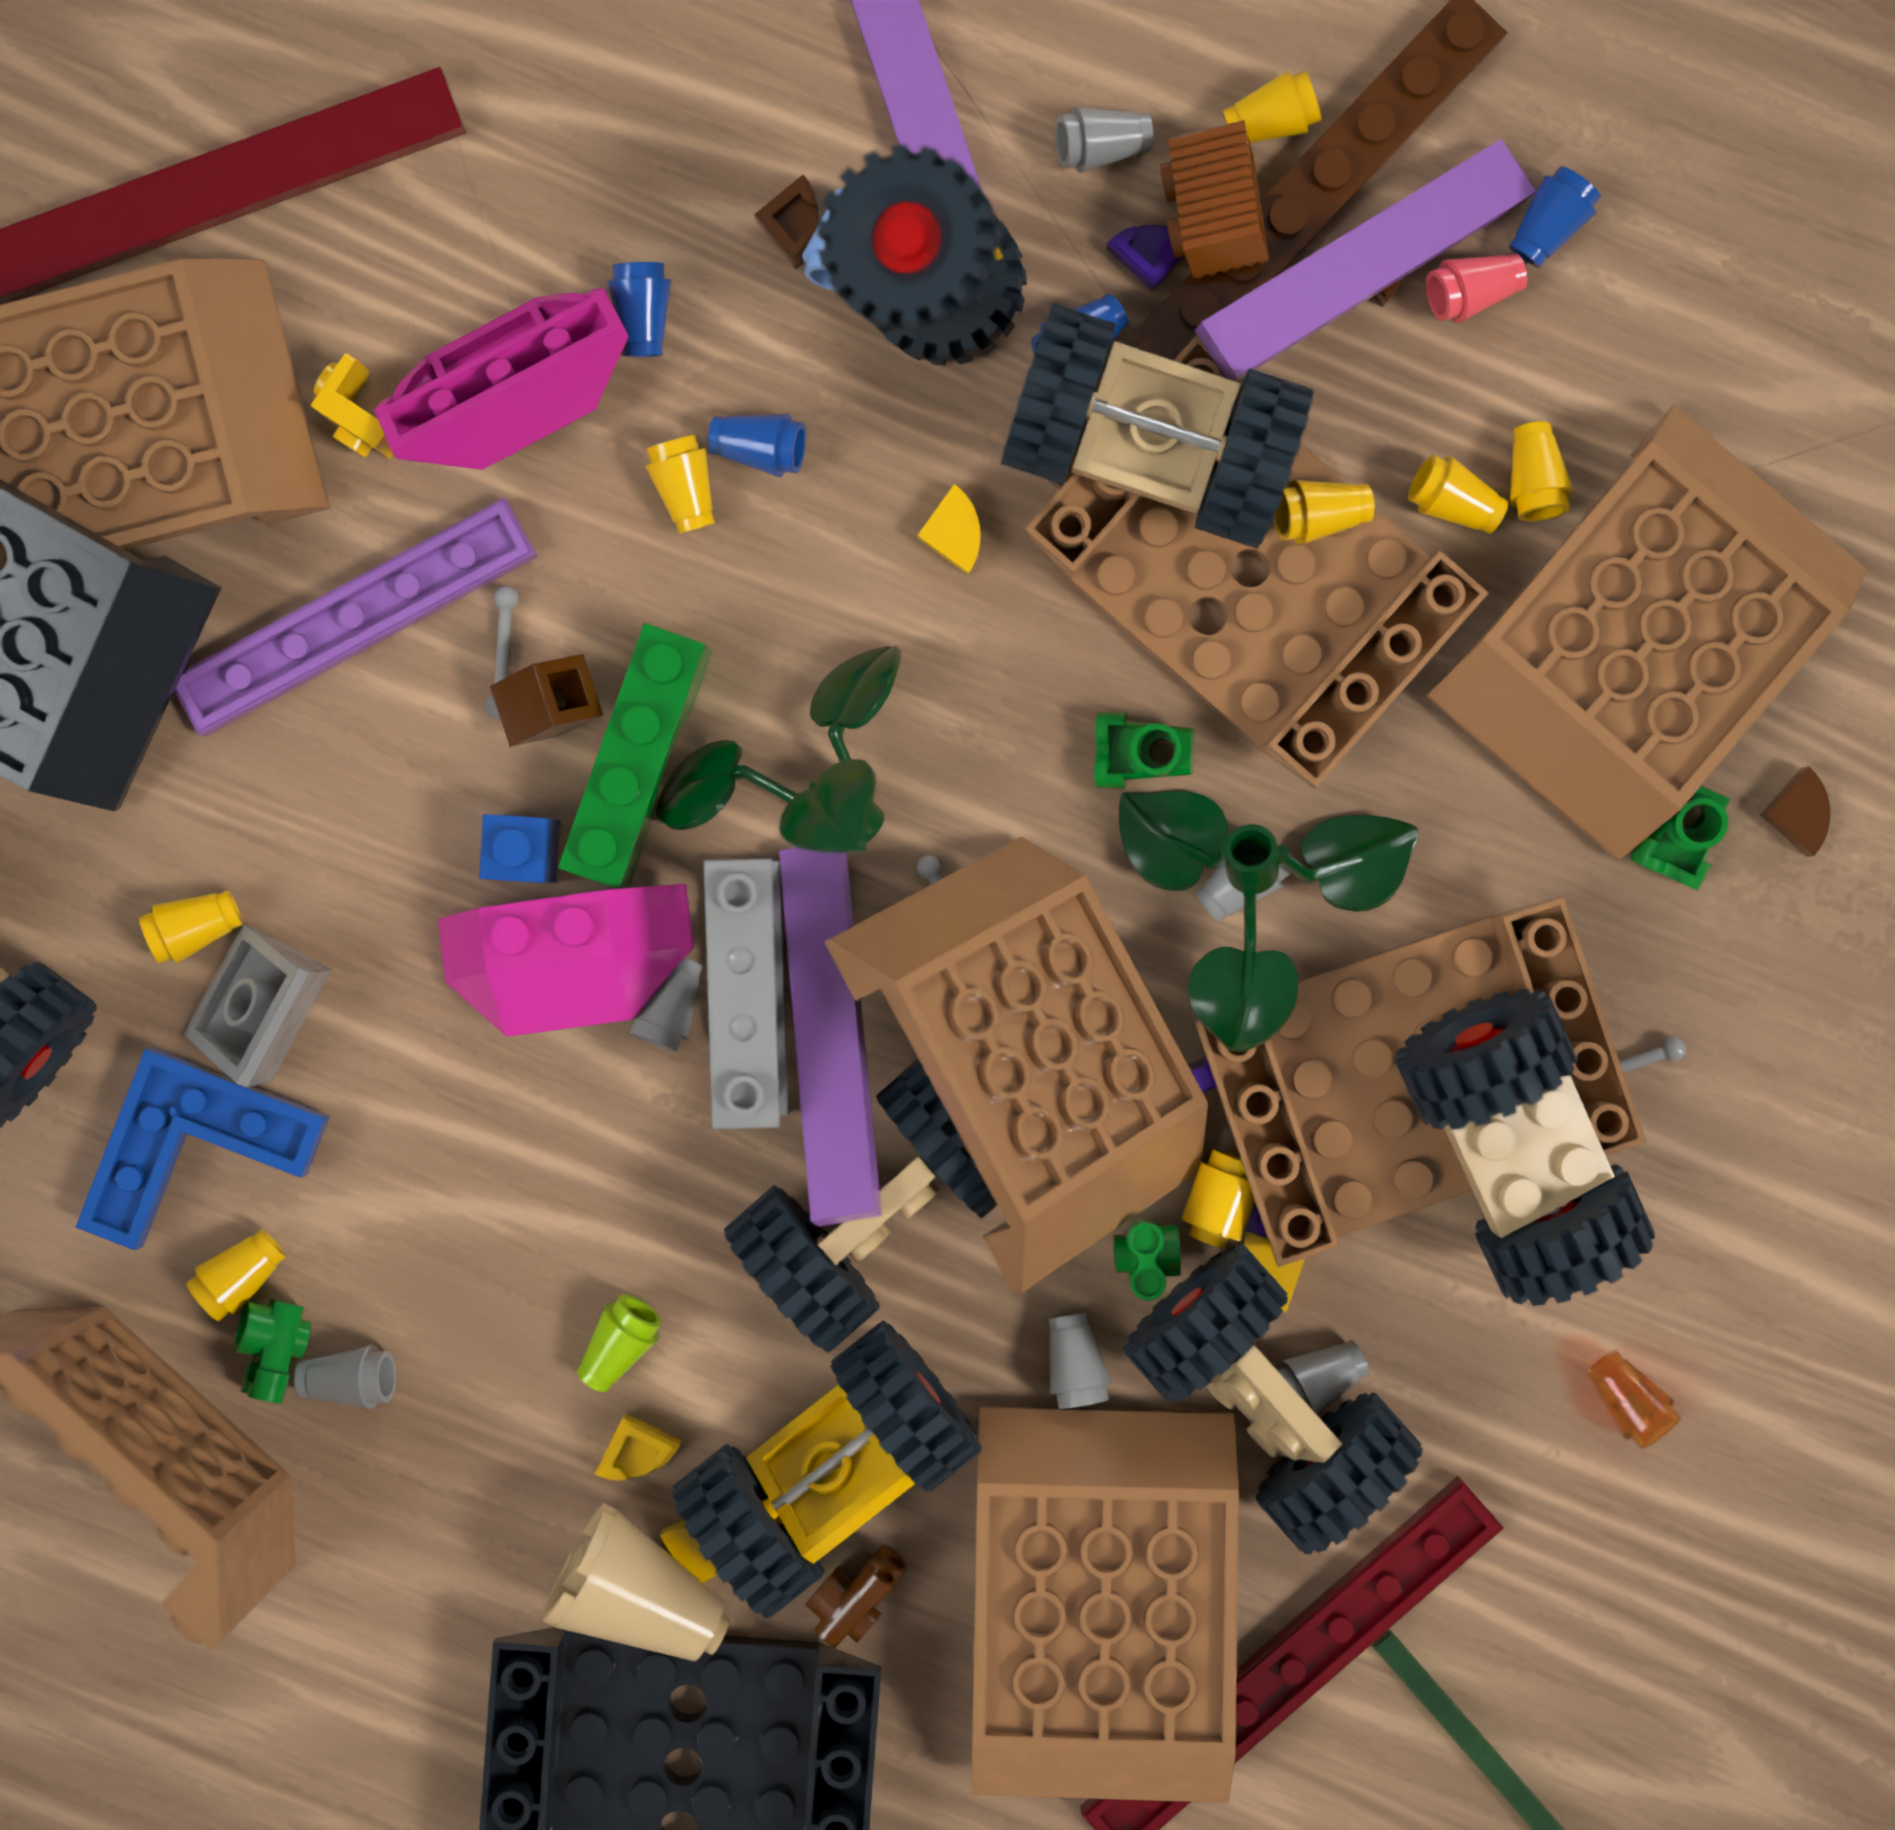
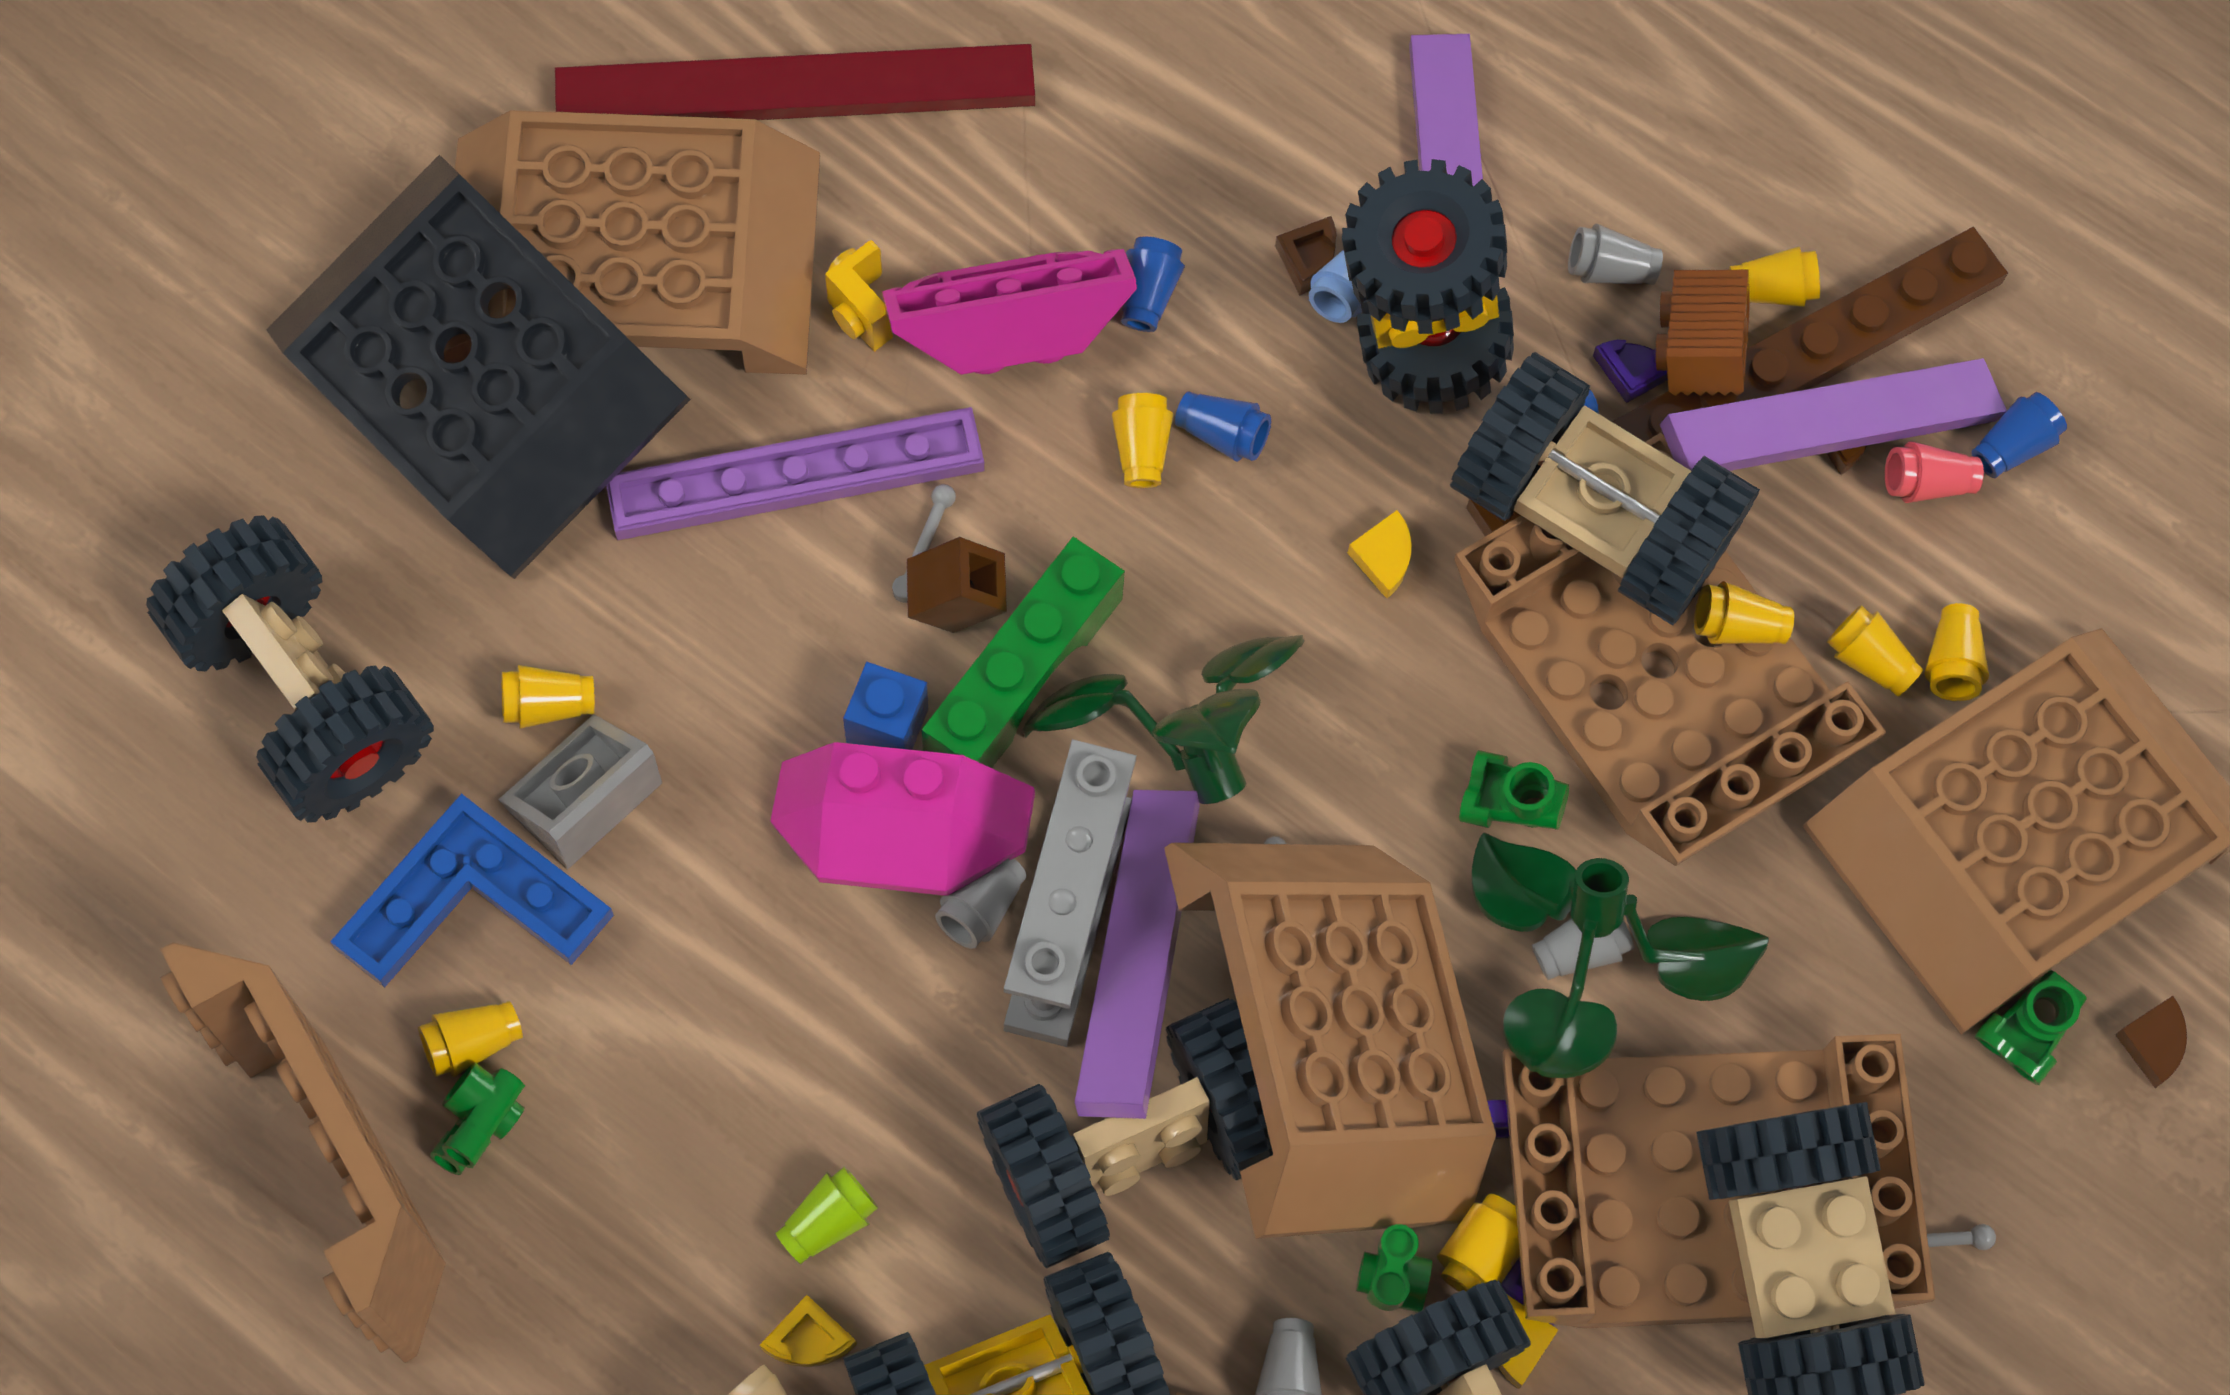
camera: 10 degrees right, 20 degrees down
(348, 1378) = (545, 1171): light grey cone -> none

